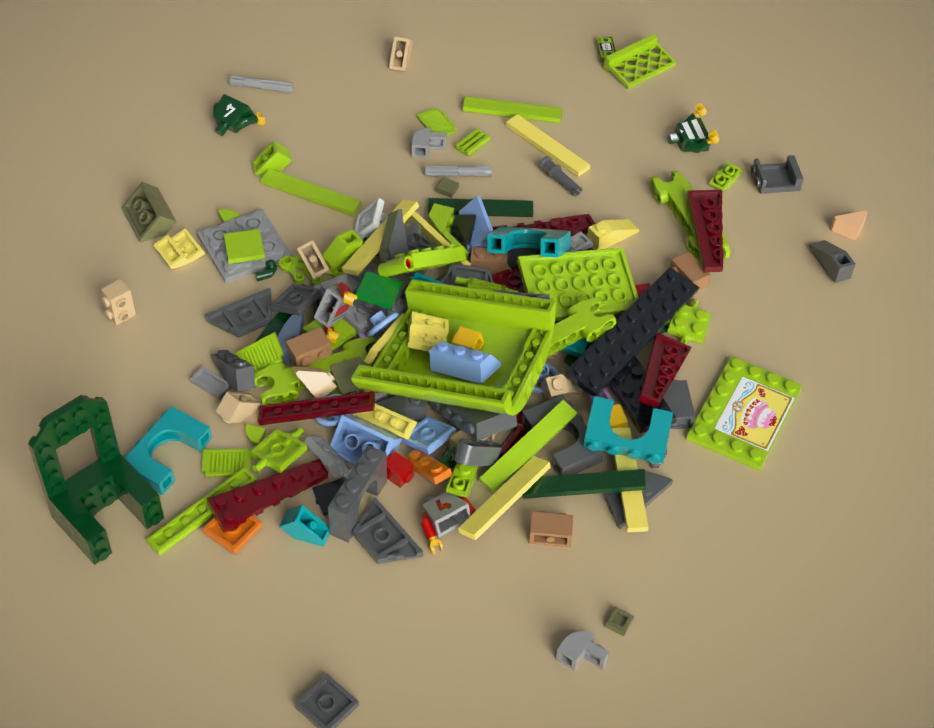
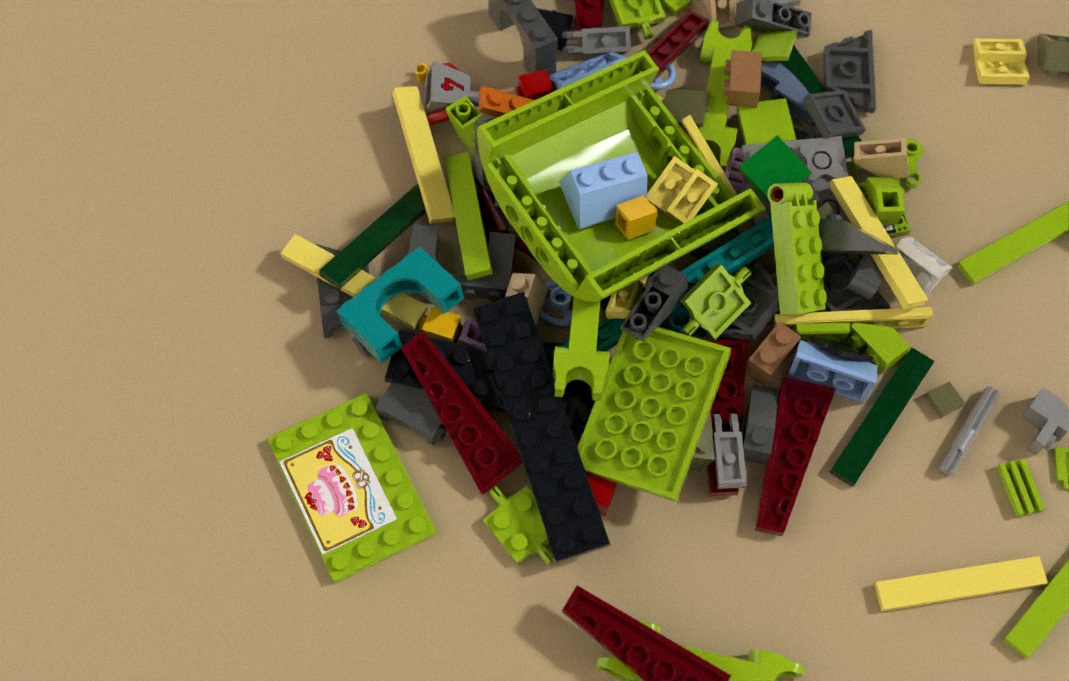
camera: 125 degrees right, 15 degrees up
(214, 244) = (969, 126): light grey piece -> none
(227, 214) = (1029, 133): lime tile -> none
(244, 246) = (958, 111): lime tile -> none
(268, 272) = (907, 127): dark green arm -> none
(315, 380) = (700, 65): slope -> none
(334, 307) = (780, 117): torso -> none
(380, 321) = (731, 162): light blue piece -> none
(384, 536) = (468, 37): dark grey wing -> none
(551, 242) = (782, 382): teal arch -> none
(551, 529) = (358, 176): medium nougat brick -> none
(554, 171) = (894, 551): dark grey pin -> none
(580, 646) = (216, 118): light grey brick -> none
(610, 232) = (734, 543): light yellow slope -> none
(619, 621) = (217, 173): olive tile -> none
(691, 269) = (604, 581): medium nougat brick -> none

